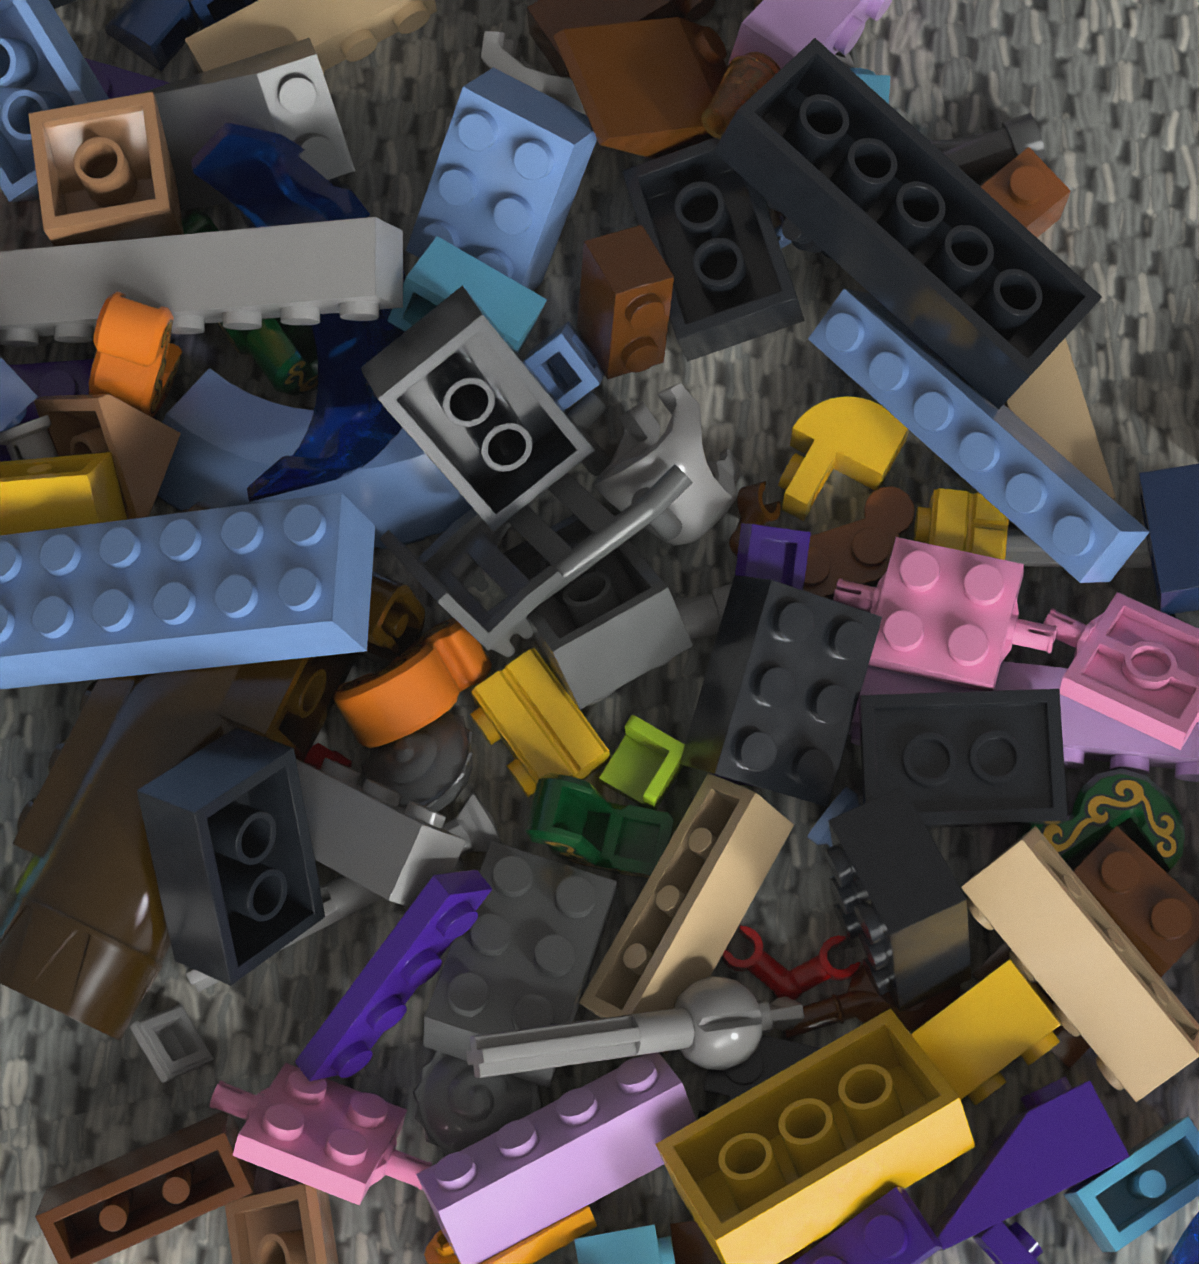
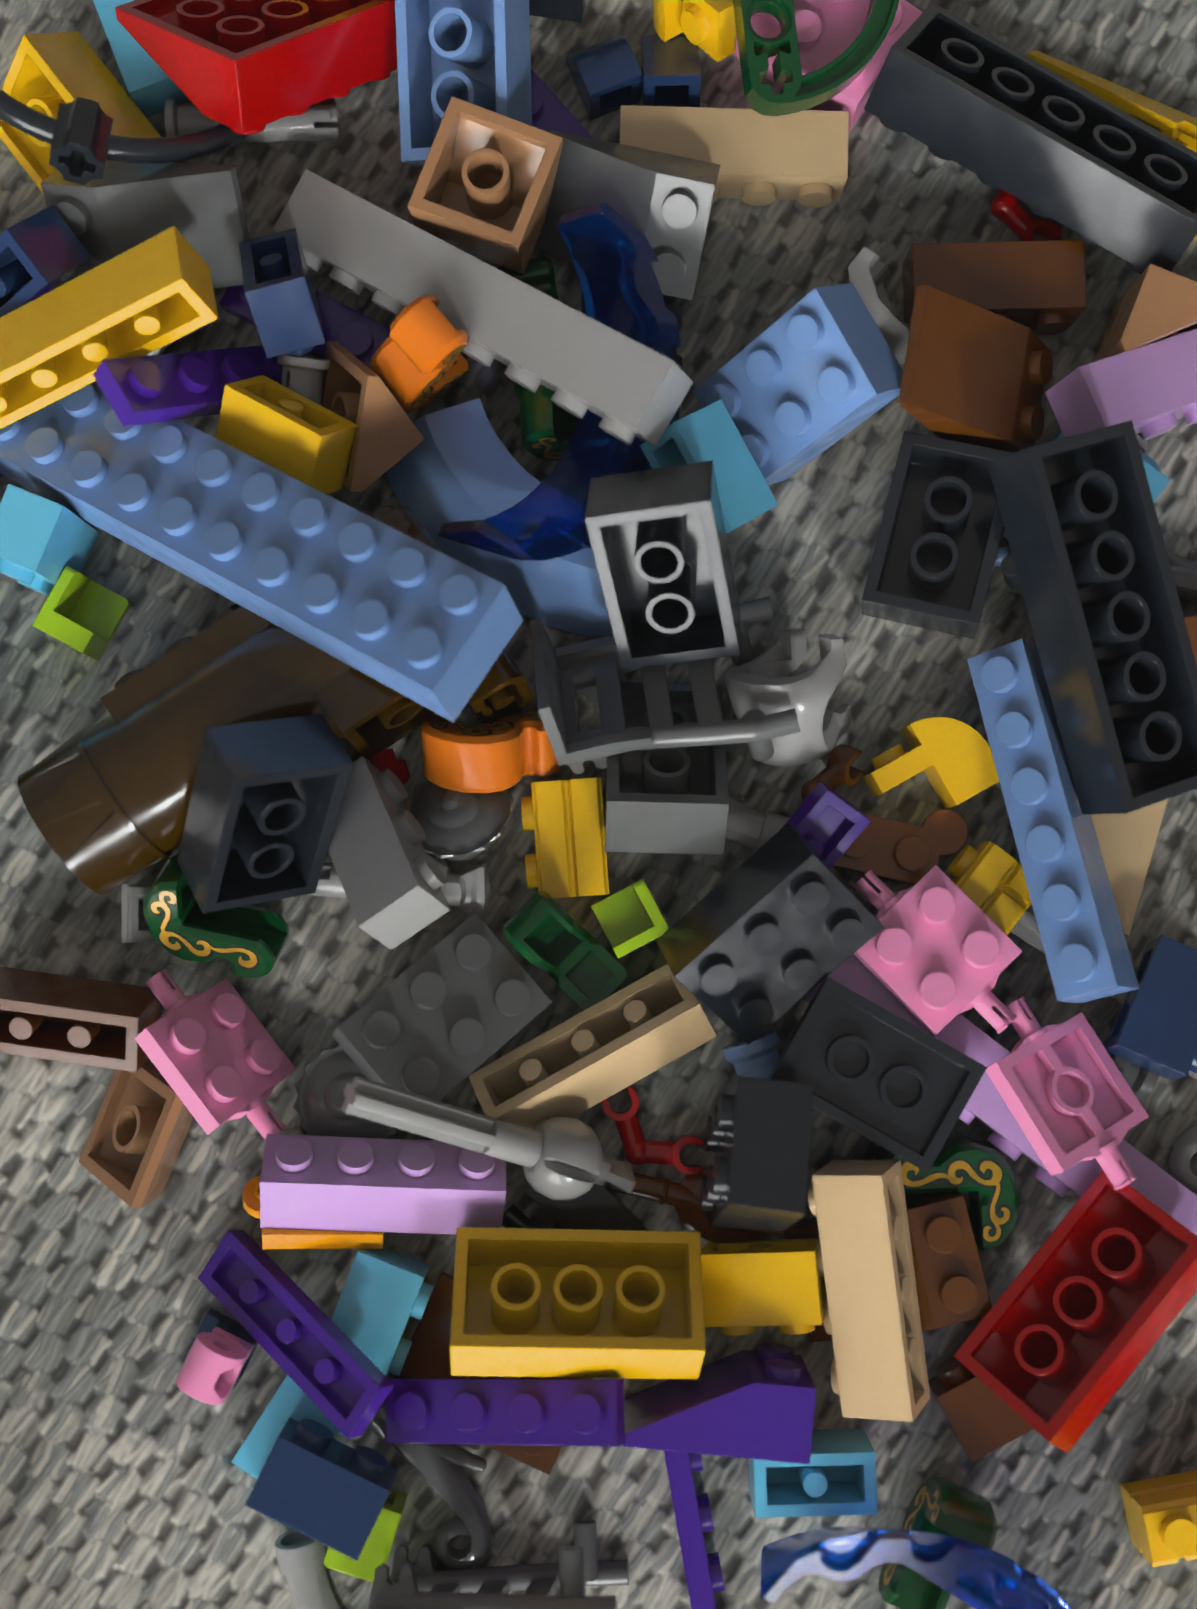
camera: 25 degrees right, 10 degrees up
(243, 1017) = (244, 934): none -> dark green animal
(396, 970) = (344, 973): dark purple plate -> none
(565, 365) = (761, 564): medium blue brick -> none
(624, 301) = (840, 541): reddish brown brick -> none
(739, 83) = (1044, 421): clear orange cone -> none

